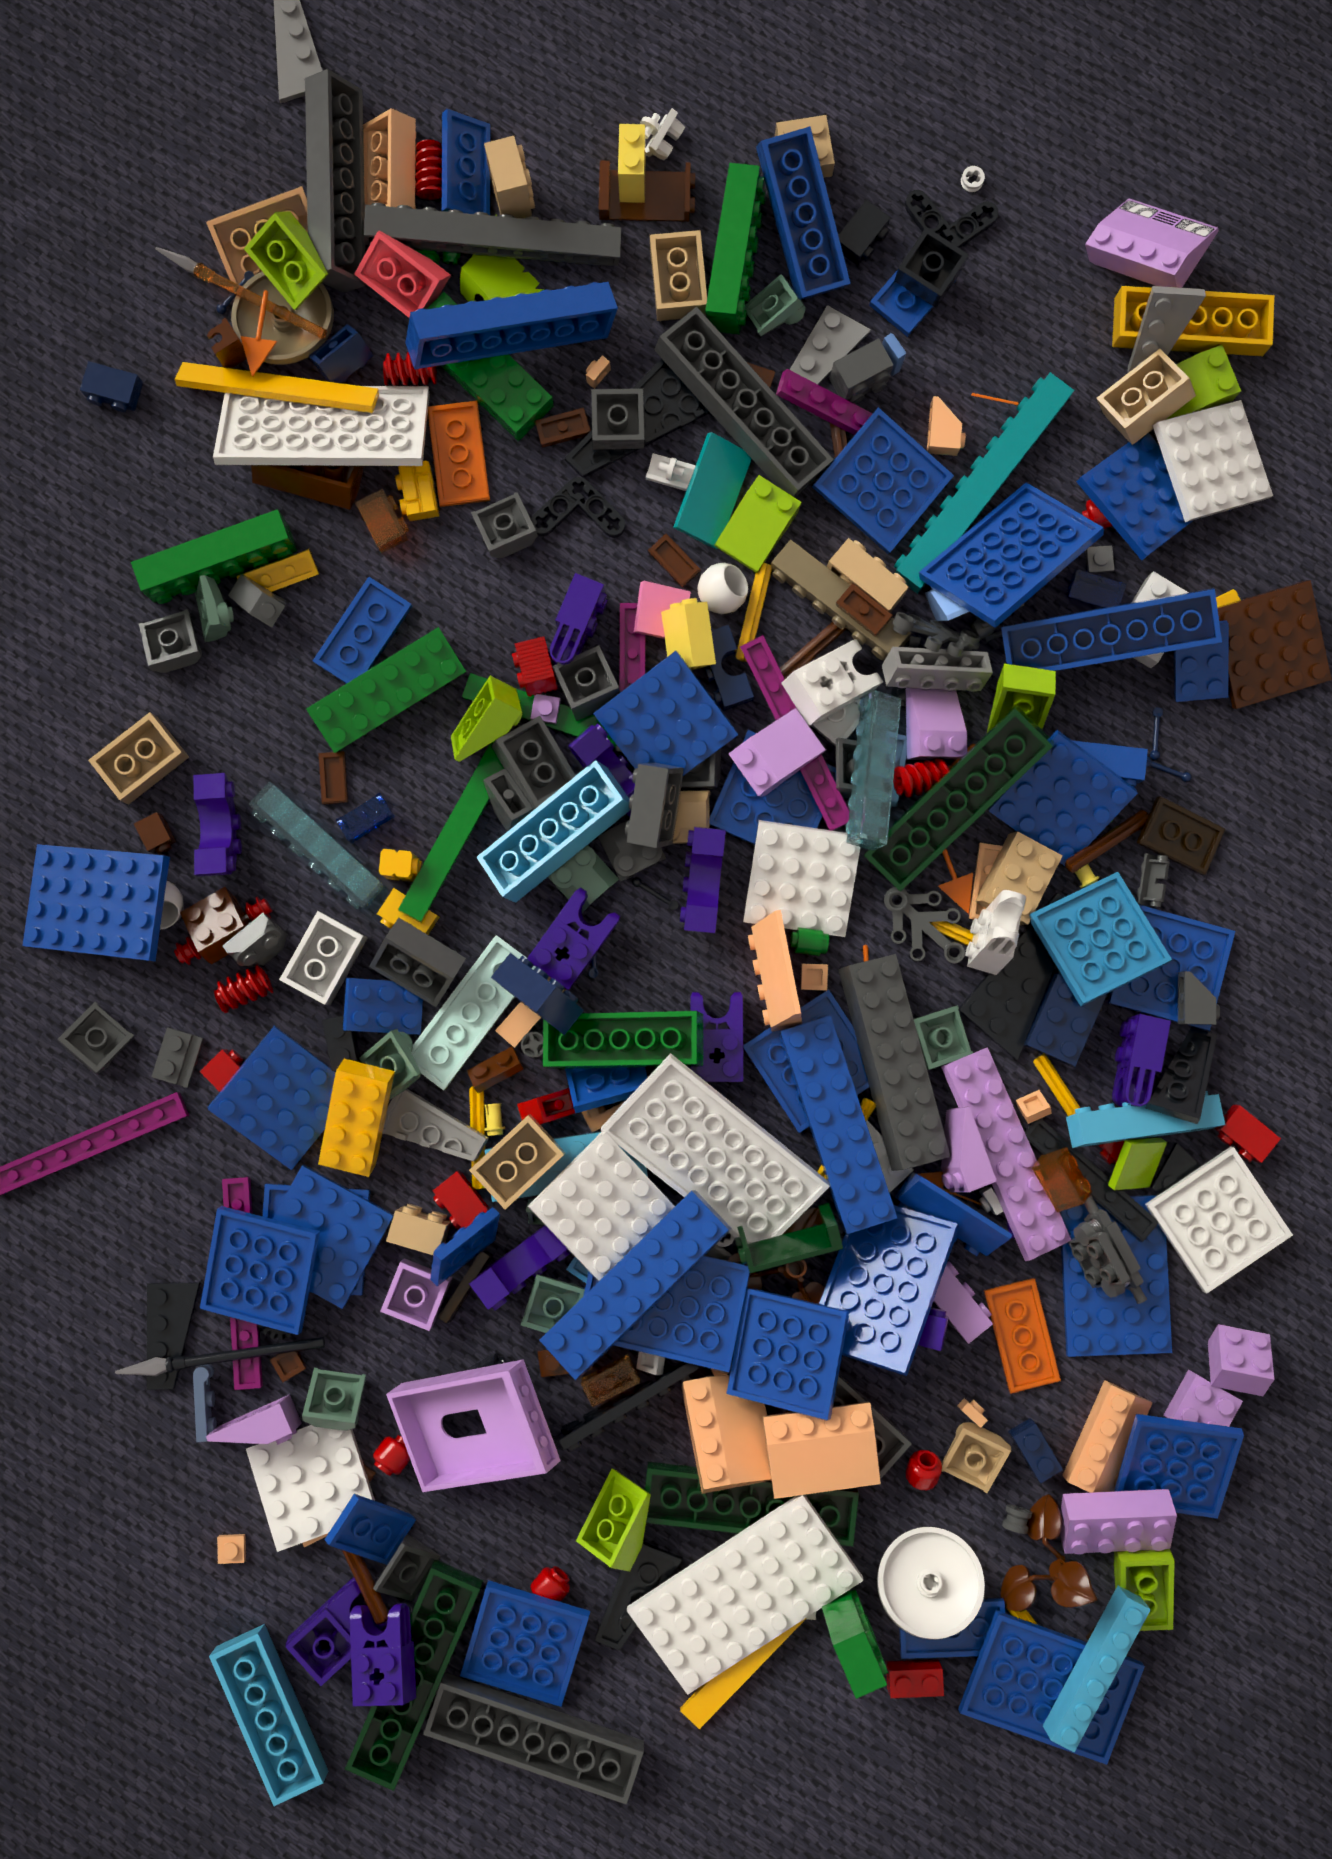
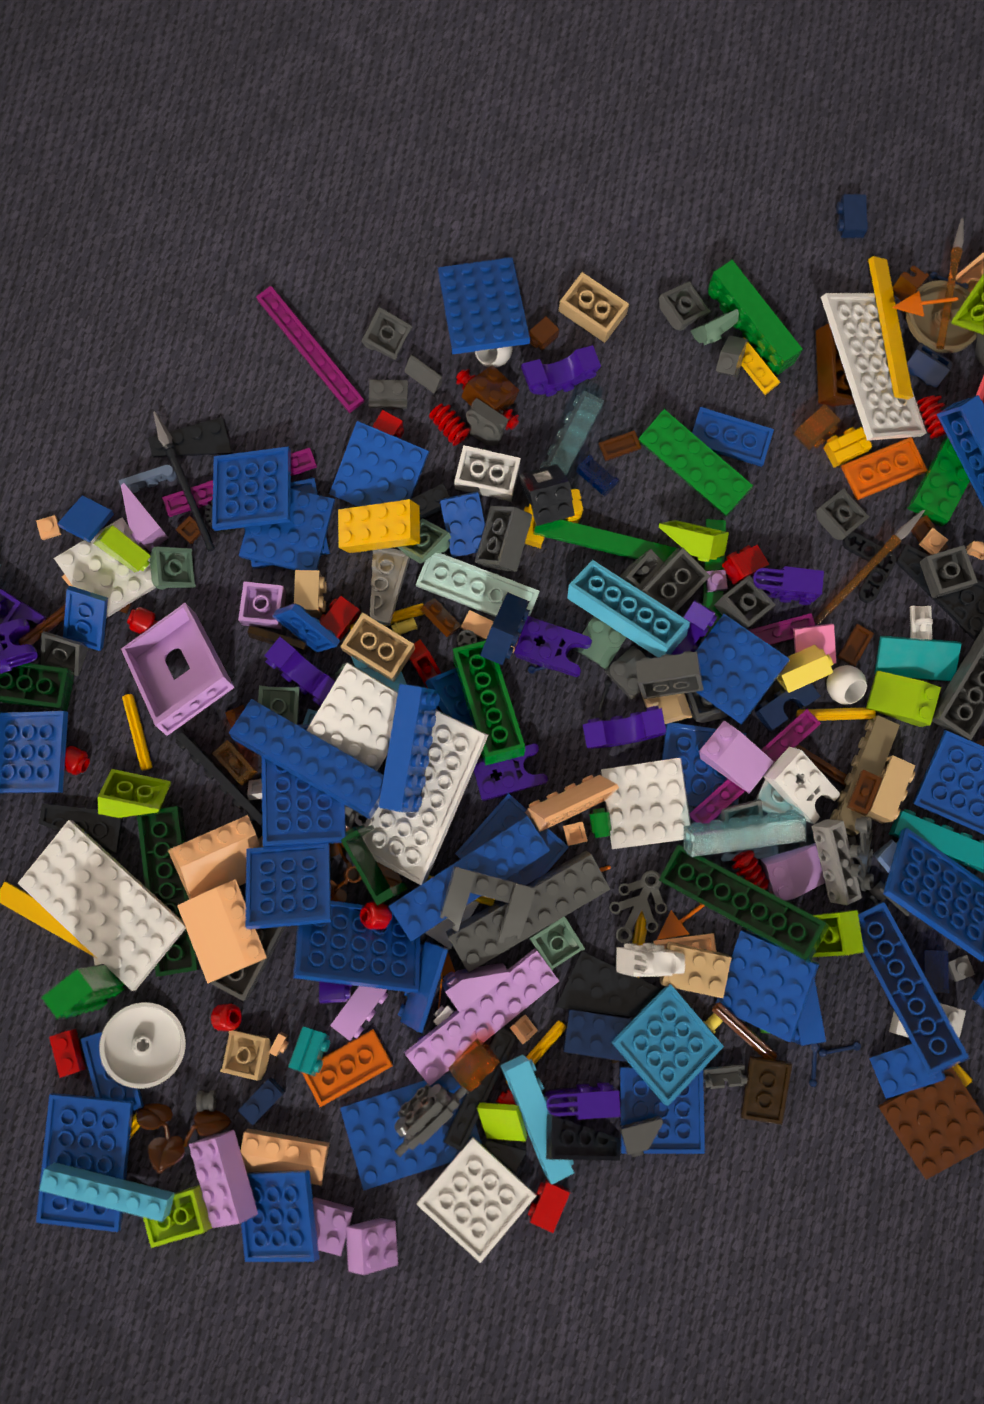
camera: 75 degrees right, 5 degrees down
(165, 1004) = (423, 374): none -> dark grey slope
(235, 1497) = (85, 519): none -> blue tile
(292, 1459) = (122, 549): none -> lime slope
(377, 890) = (548, 494): none -> black brick
(535, 1496) = (137, 732): none -> yellow axle
(550, 459) = (889, 546): none -> clear orange piece
(572, 424) = (933, 541): none -> light nougat plate
(660, 1157) = (409, 749): none -> blue brick
(843, 1131) = (517, 896): none -> dark grey wedge
(855, 1253) = (375, 916): none -> red head
(992, 1377) = (309, 1051): none -> teal brick

